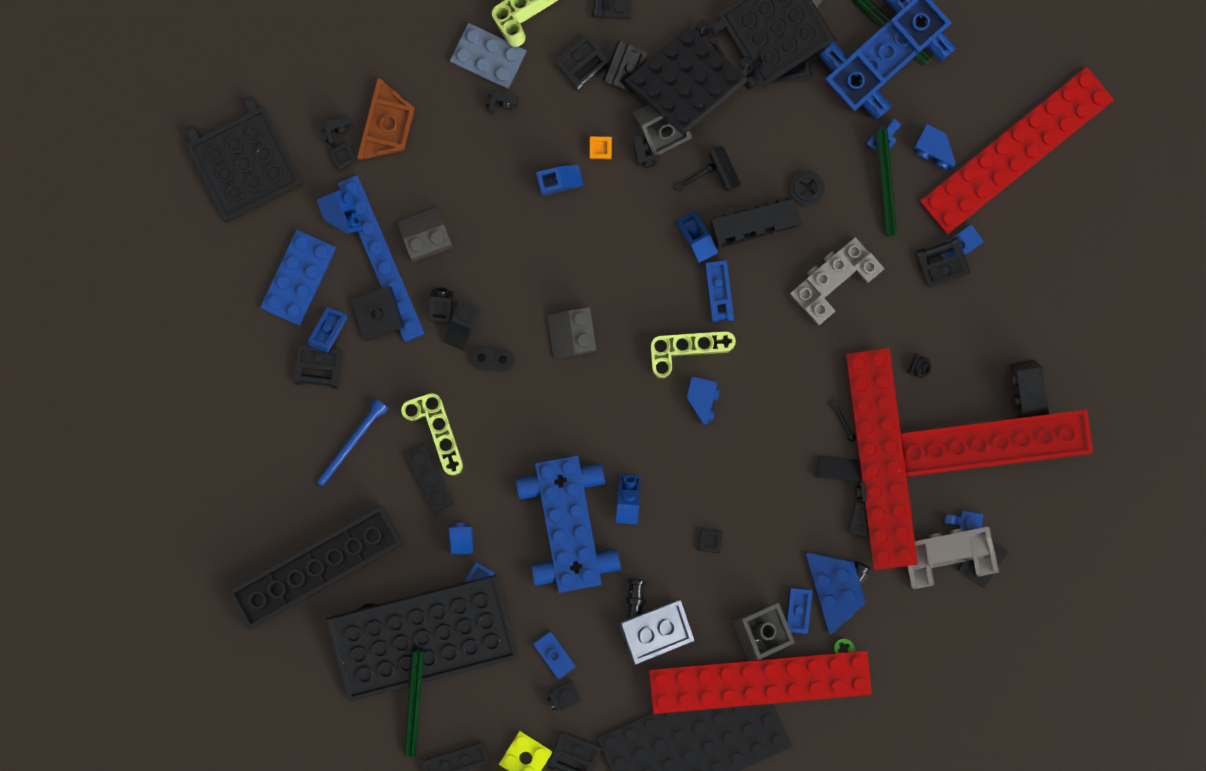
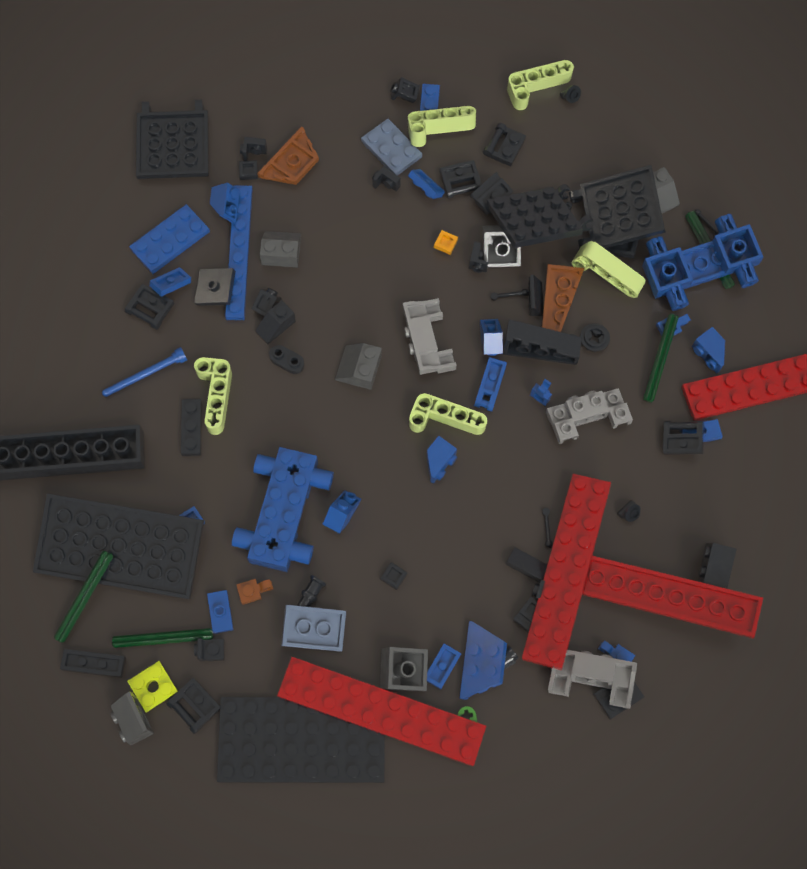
camera: 25 degrees right, 15 degrees down
(461, 539) = (191, 481): blue slope -> none
(510, 707) = (161, 638): none -> dark green axle
(548, 86) = (422, 180): none -> blue plate
(559, 179) = (402, 249): blue slope -> none
(575, 620) = (250, 590): none -> dark orange plate
(625, 273) = (423, 343): none -> light grey bracket
(747, 149) = (559, 294): none -> dark orange wing
(777, 278) = (541, 392): none -> blue plate
(789, 102) = (609, 267): none -> yellowish green beam

